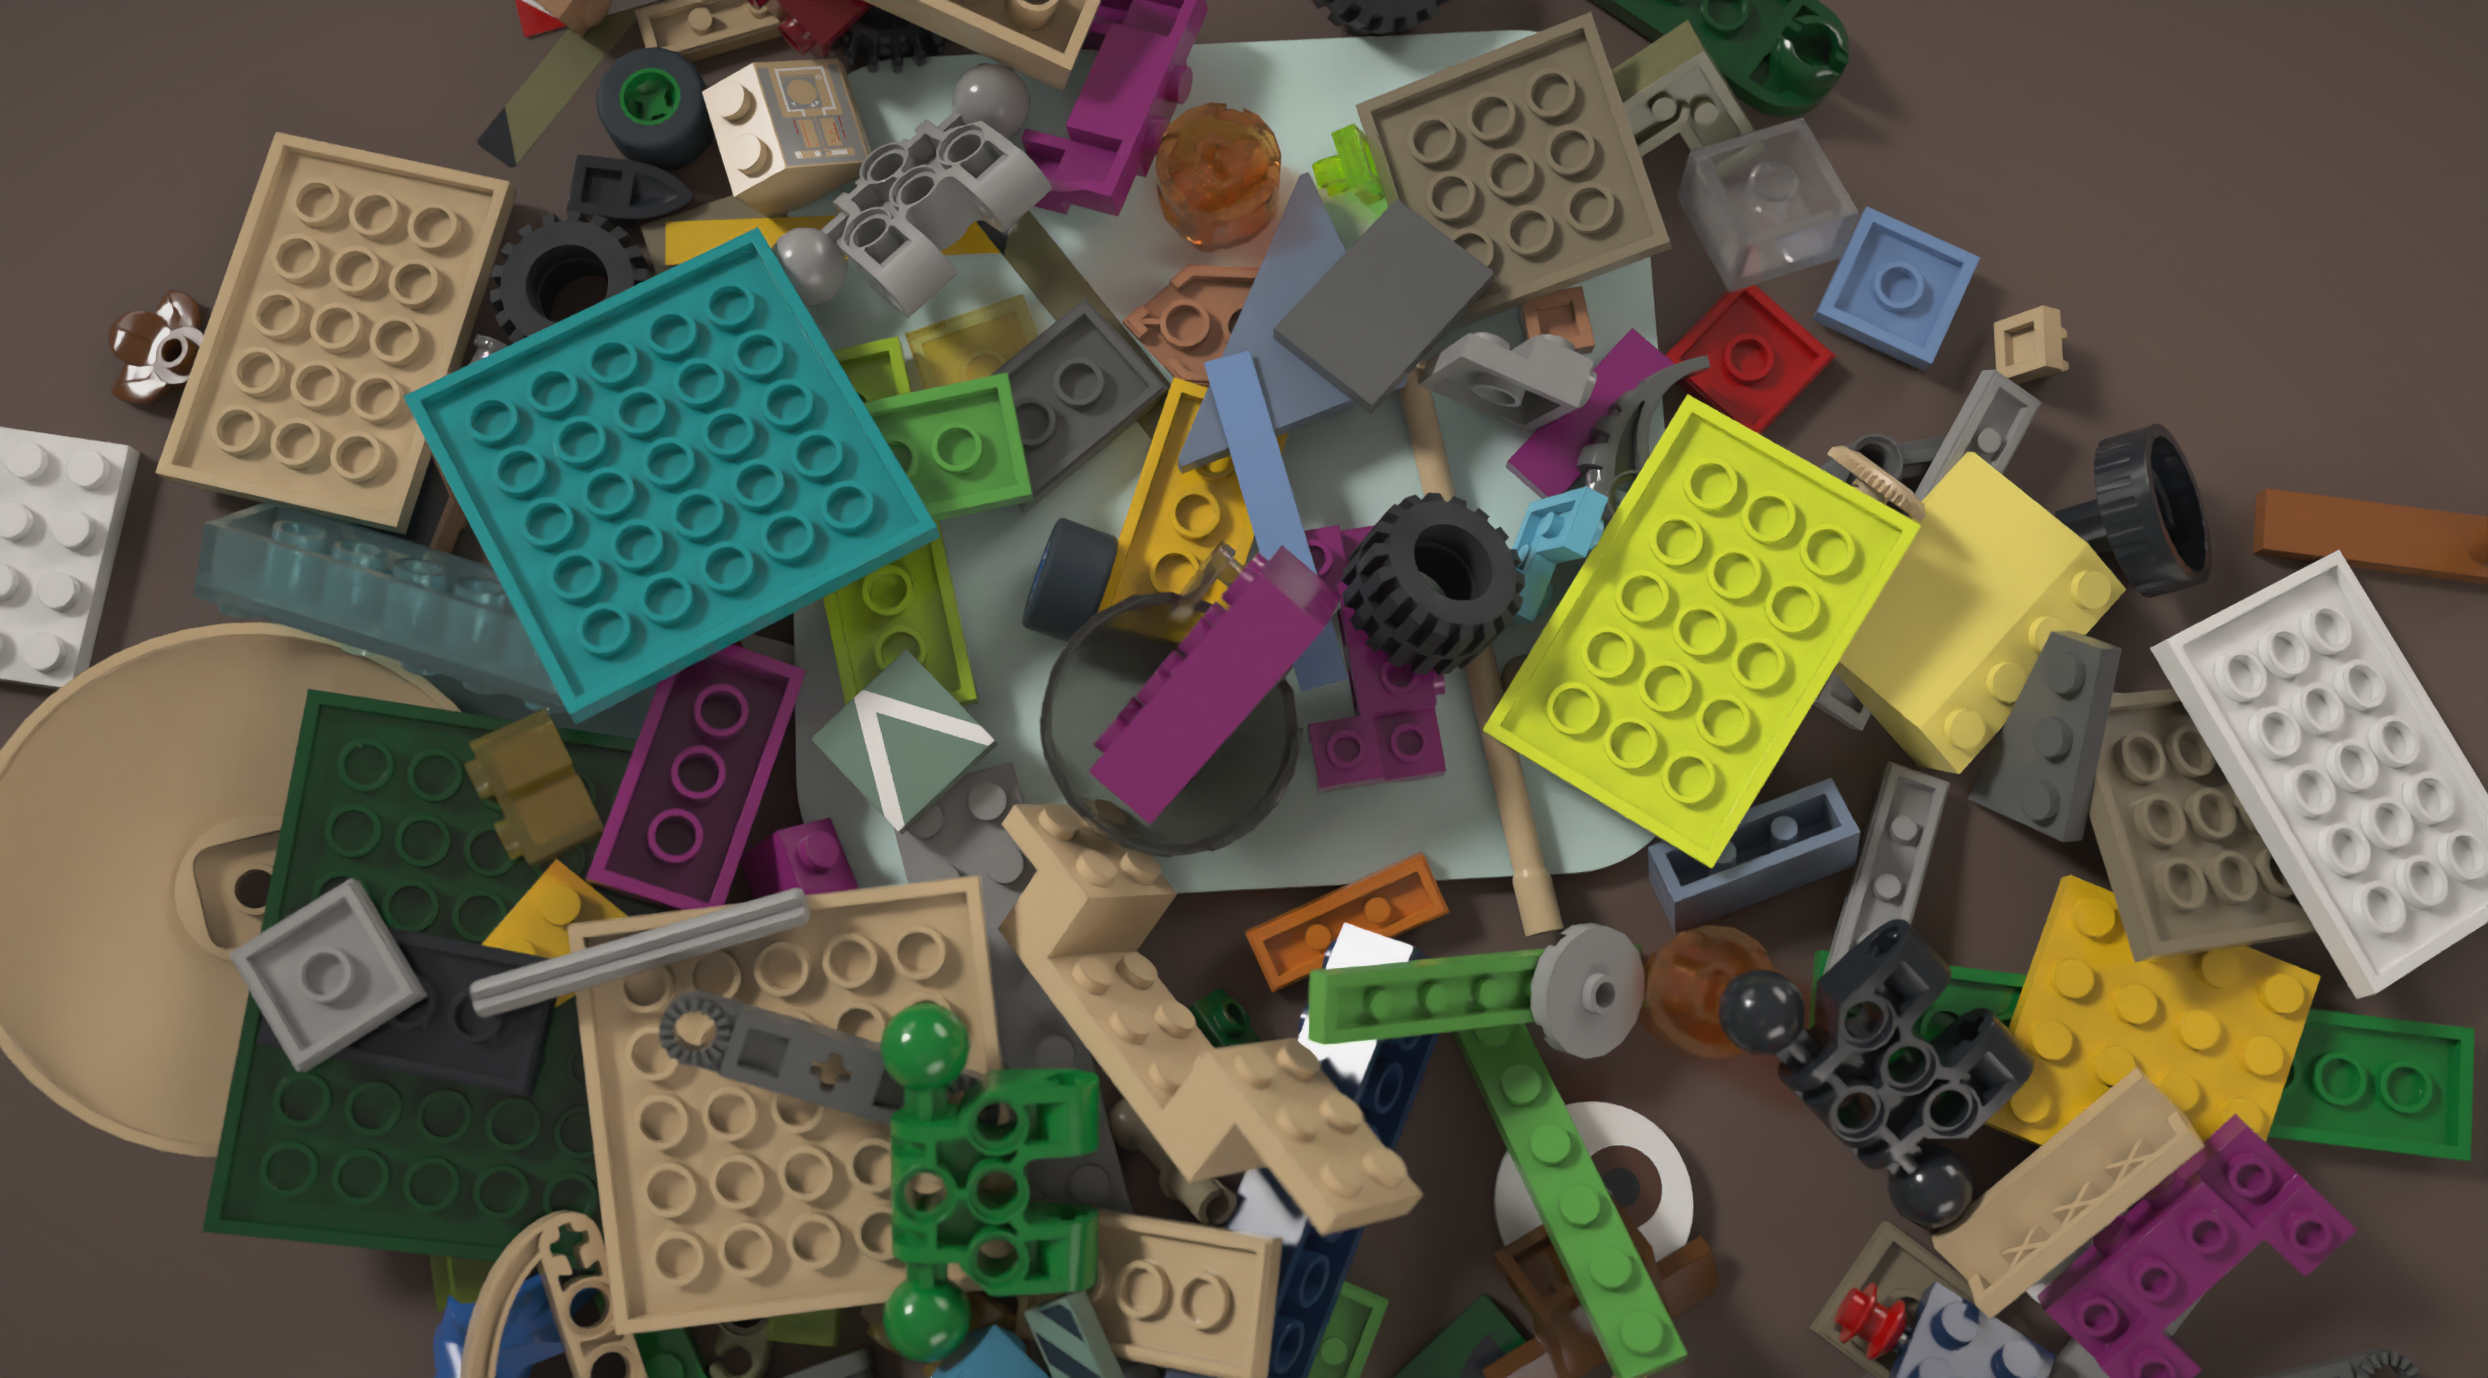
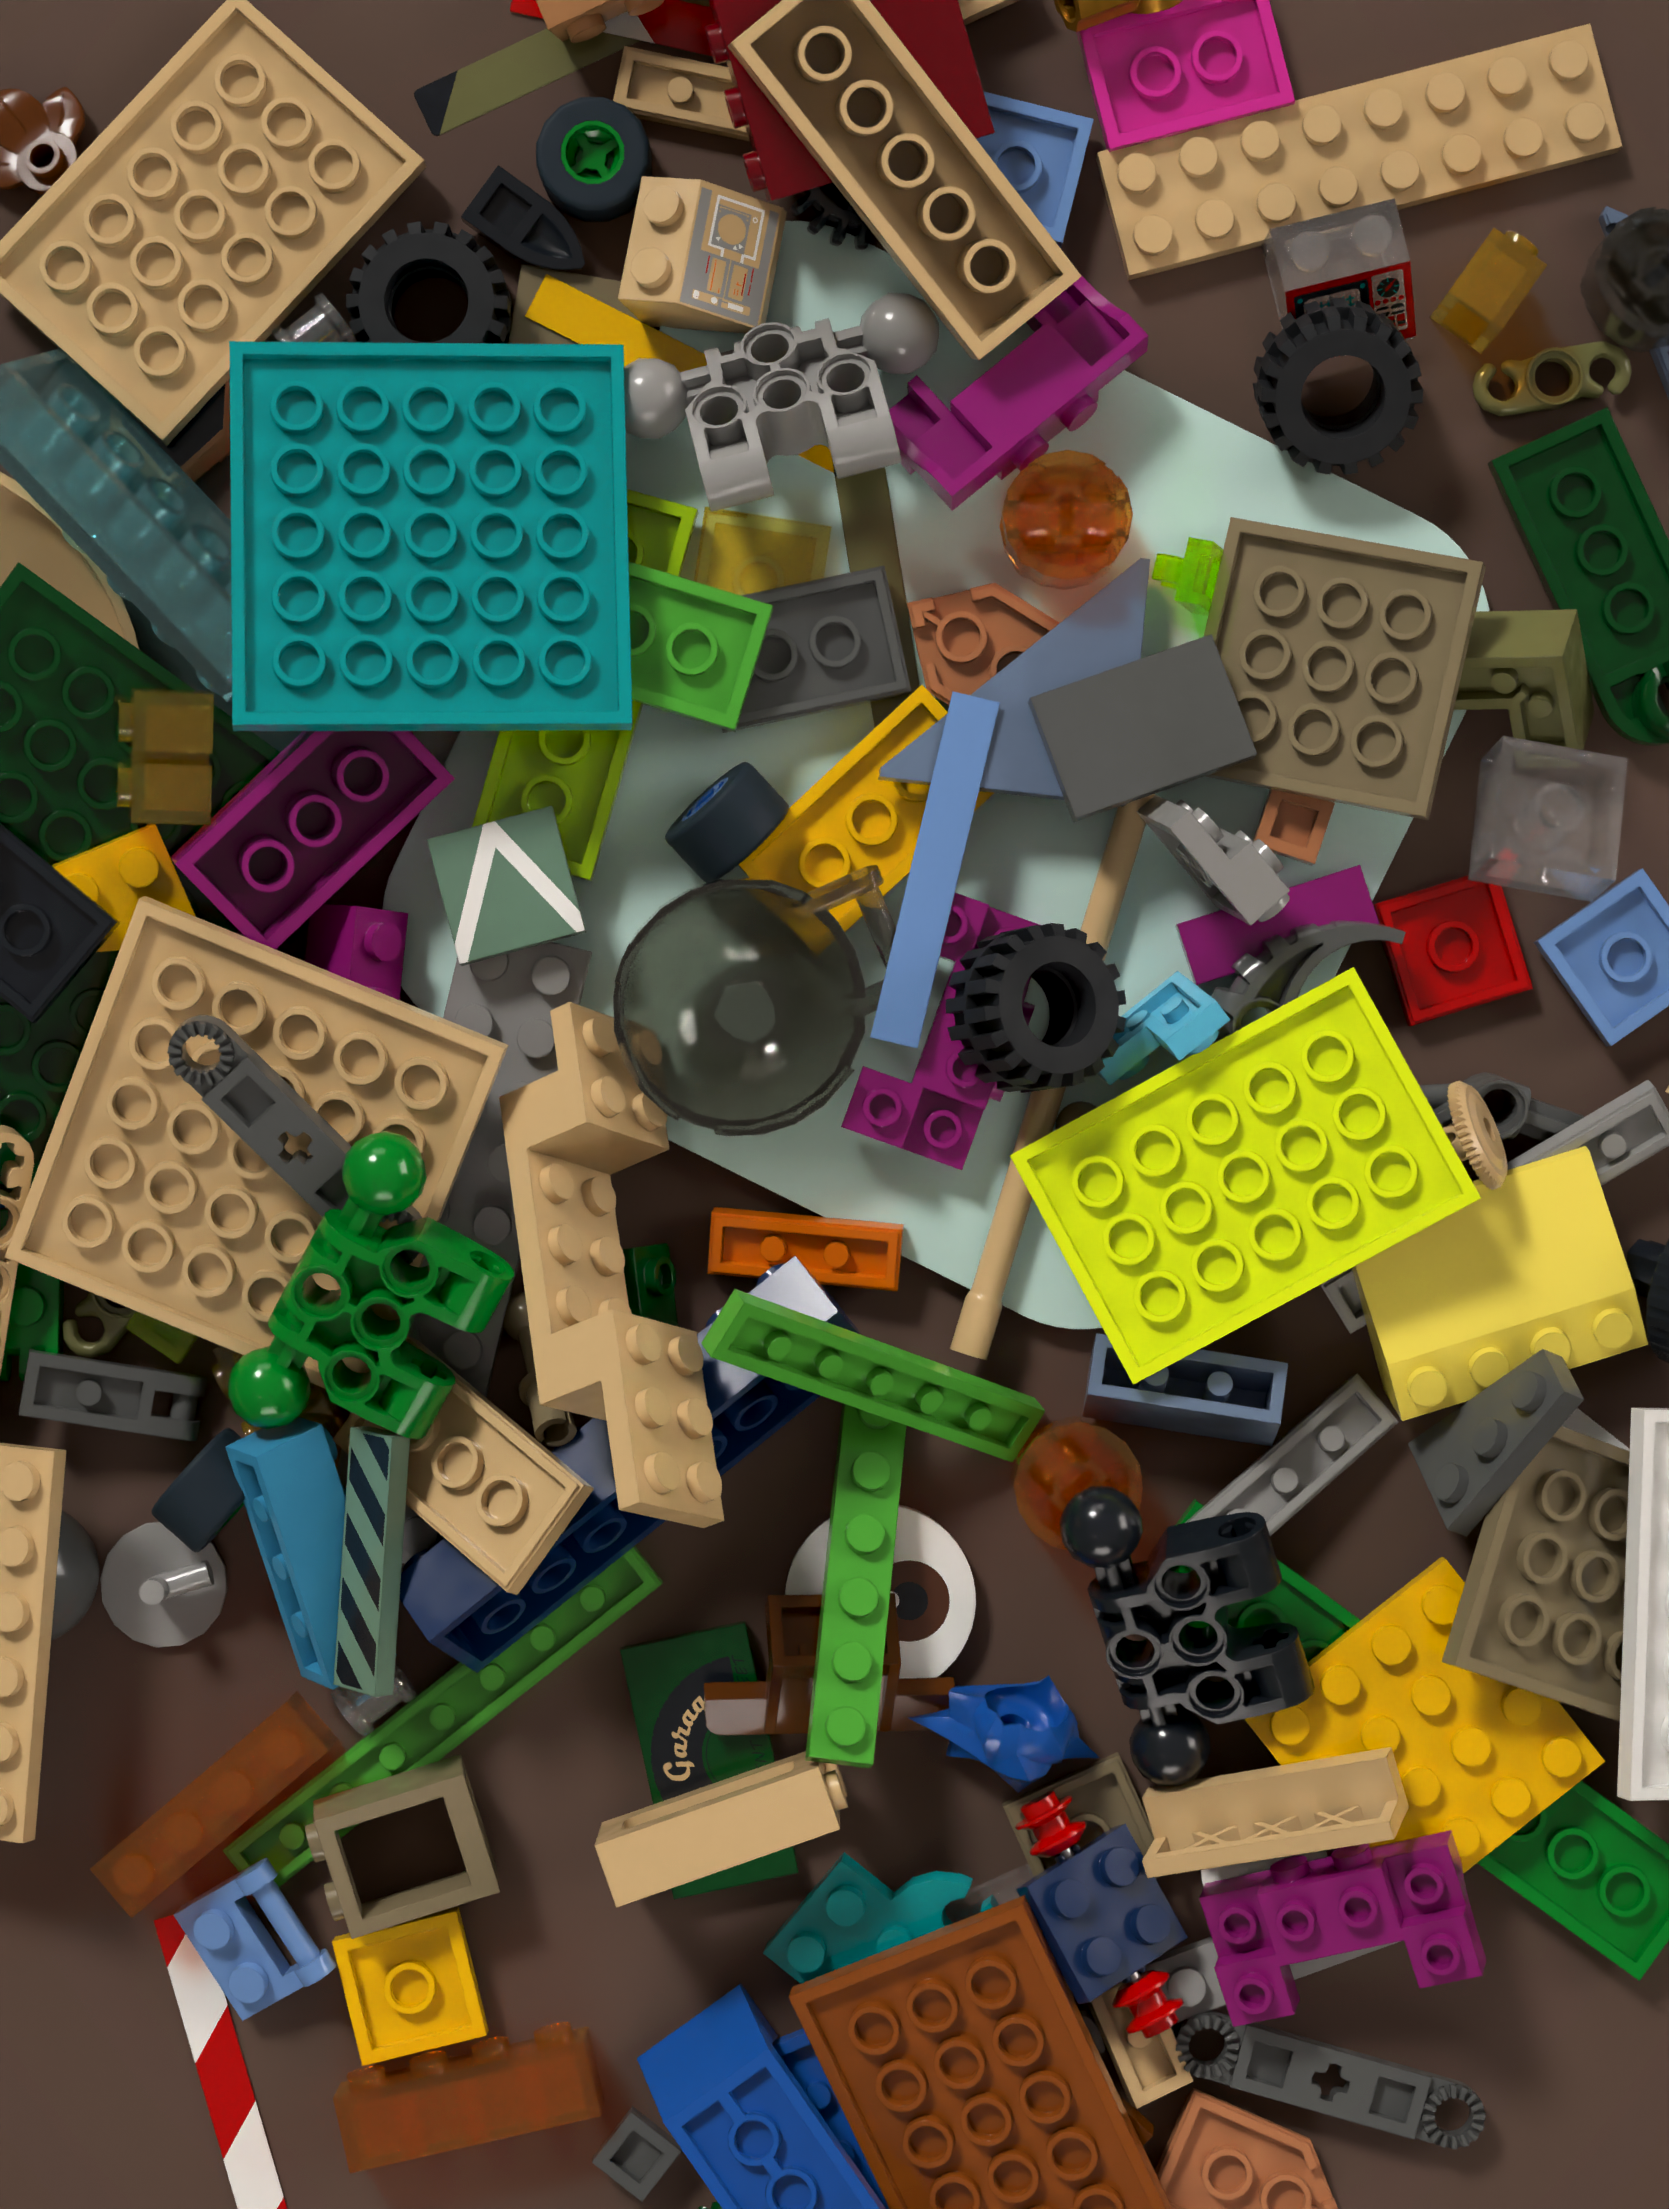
camera: 30 degrees right, 10 degrees up
(640, 952) = (189, 957): light grey axle -> none
(1226, 672) = (796, 992): magenta brick -> none
(1588, 990) = (971, 1426): light grey plate -> none
(1780, 1252) = (1010, 1729): none -> blue hair

